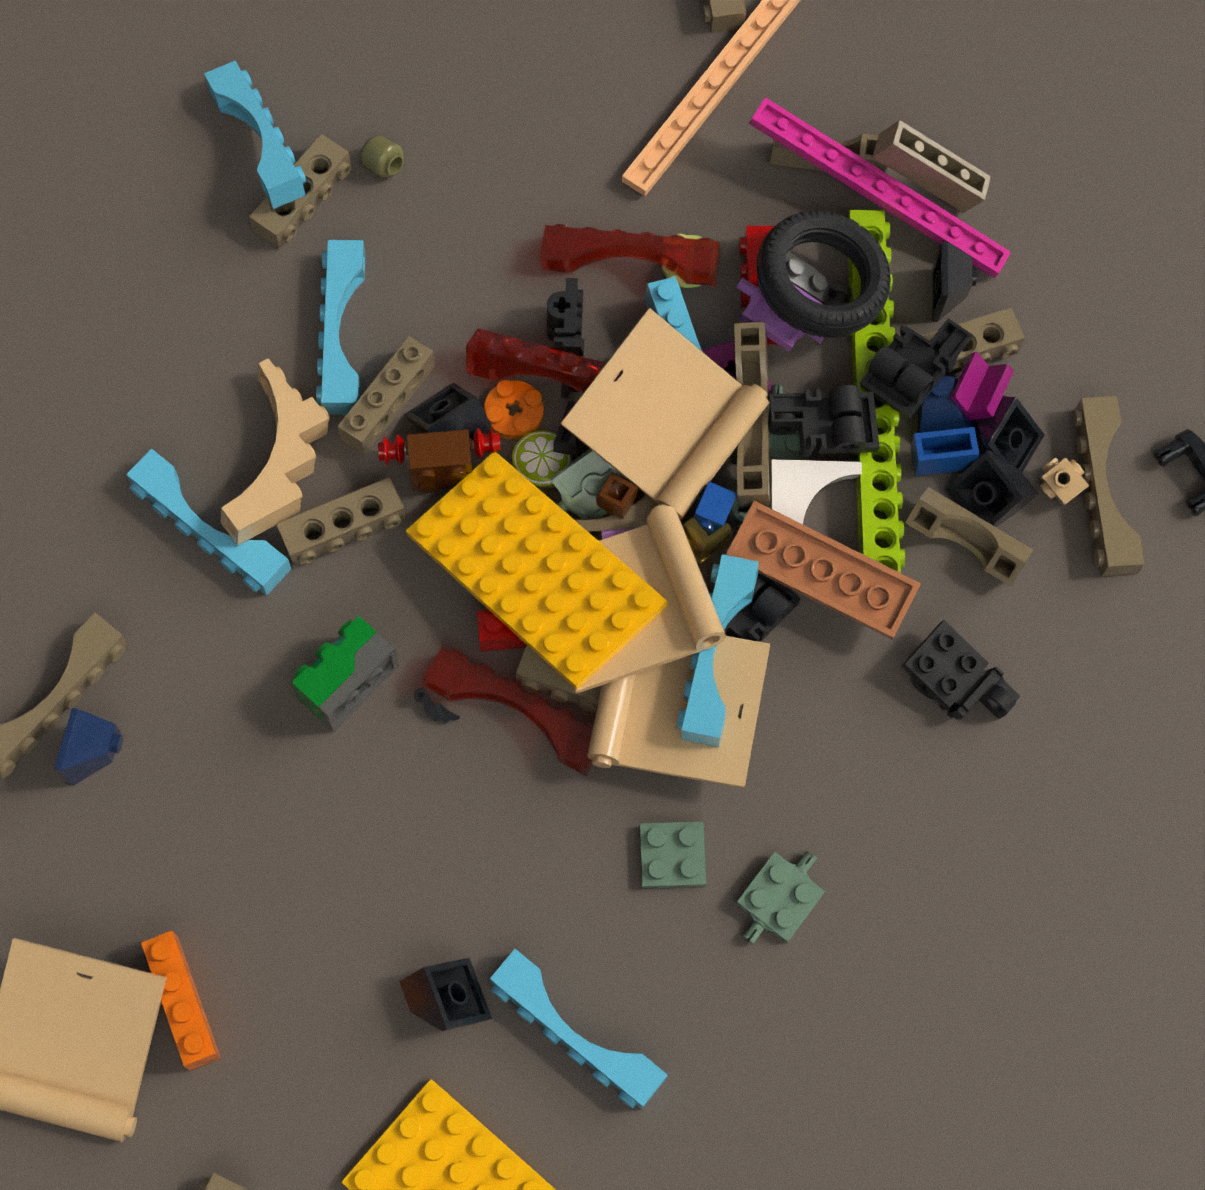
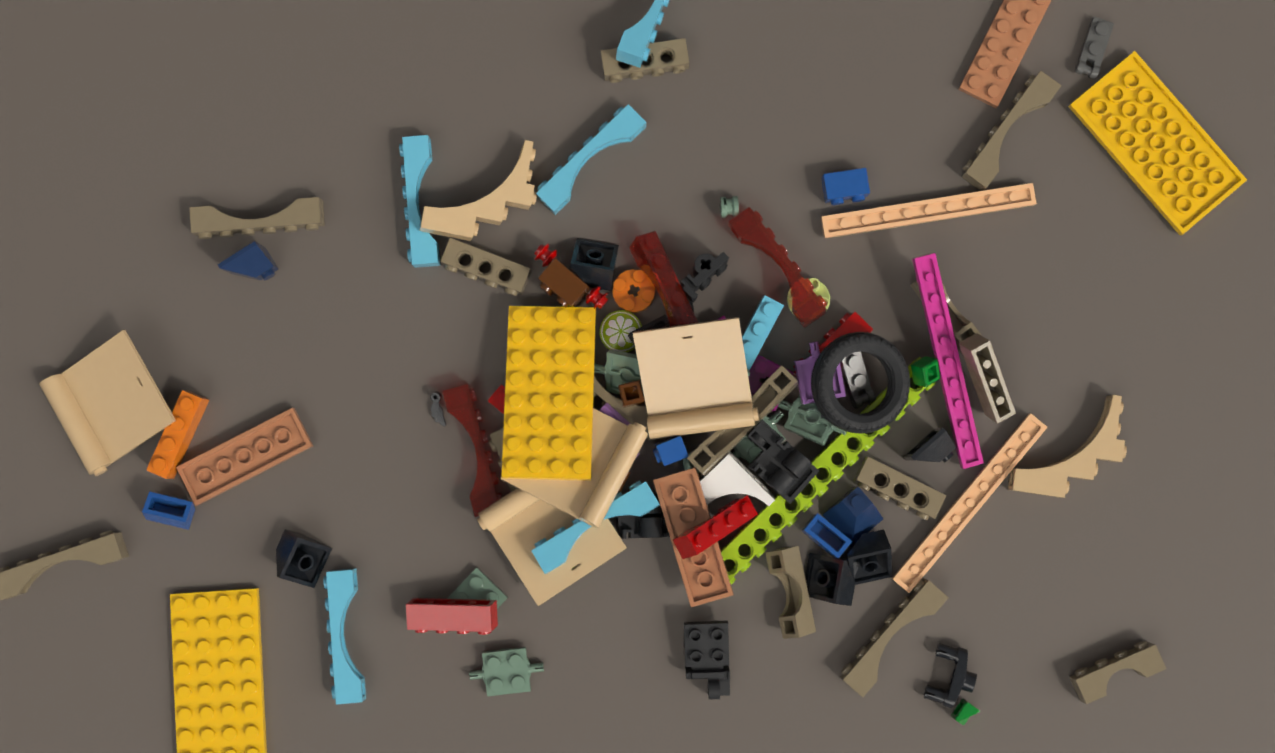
camera: 50 degrees right, 15 degrees up
(251, 1088) = (168, 510): none -> blue piece
(277, 954) = (244, 456): none -> nougat plate
(345, 672) = (406, 350): piece -> none
(382, 156) = (707, 81): olive head -> none
(386, 395) = (574, 220): dark tan brick -> none
(524, 247) = (729, 206): none -> sand green wheel
(615, 130) = (845, 186): none -> blue piece
(666, 890) = (451, 615): none -> brick
(702, 544) = (646, 460): clear yellow panel -> none
(811, 363) = (808, 421): none -> sand green plate
(835, 538) = (714, 529): none -> red arch
(870, 213) = (925, 371): none -> green slope
(913, 366) = (851, 478): black plate -> none
(981, 387) = (882, 522): magenta panel -> none
(1038, 302) = (969, 503): none -> light nougat plate
(1074, 481) = (871, 612): tan brick -> none
(1096, 170) = (1082, 463): none -> tan arch

